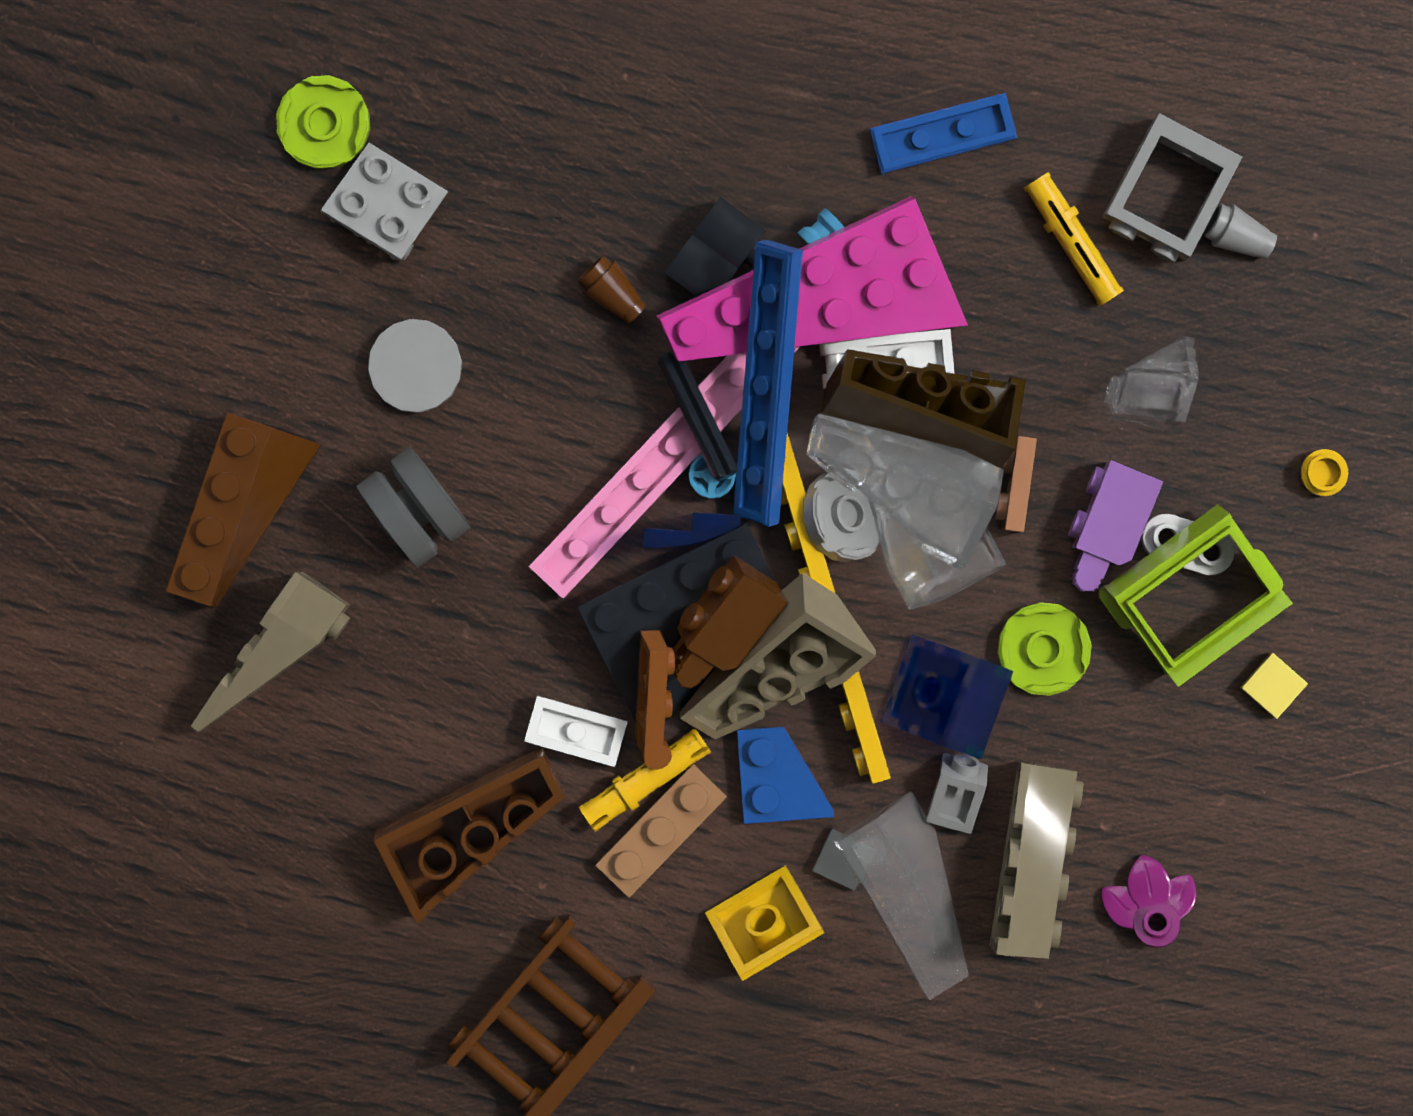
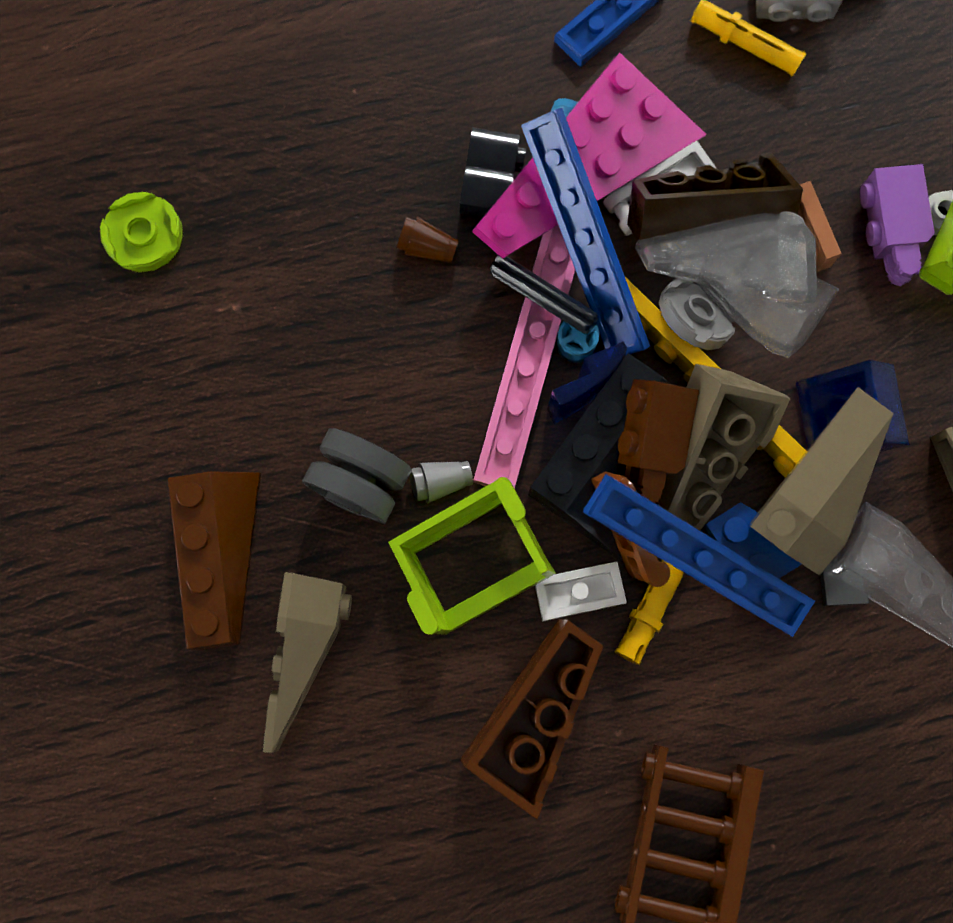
camera: 30 degrees left, 10 degrees down
(384, 202) = (216, 265): light grey hinge -> none
(415, 365) = (303, 374): light grey tile -> none
(418, 661) = (423, 598): none -> lime piece
(495, 547) = (438, 479): none -> light grey cone
(661, 830) = (688, 641): medium nougat plate -> none
(704, 761) = (698, 555): none -> blue tile
(764, 923) = (818, 668): yellow slope -> none
(856, 765) = (823, 492): none -> dark tan wedge
(958, 792) = (905, 482): light grey bracket -> none
(1044, 648) = (902, 337): lime tile -> none
(1156, 388) = (889, 90): clear wedge -> none

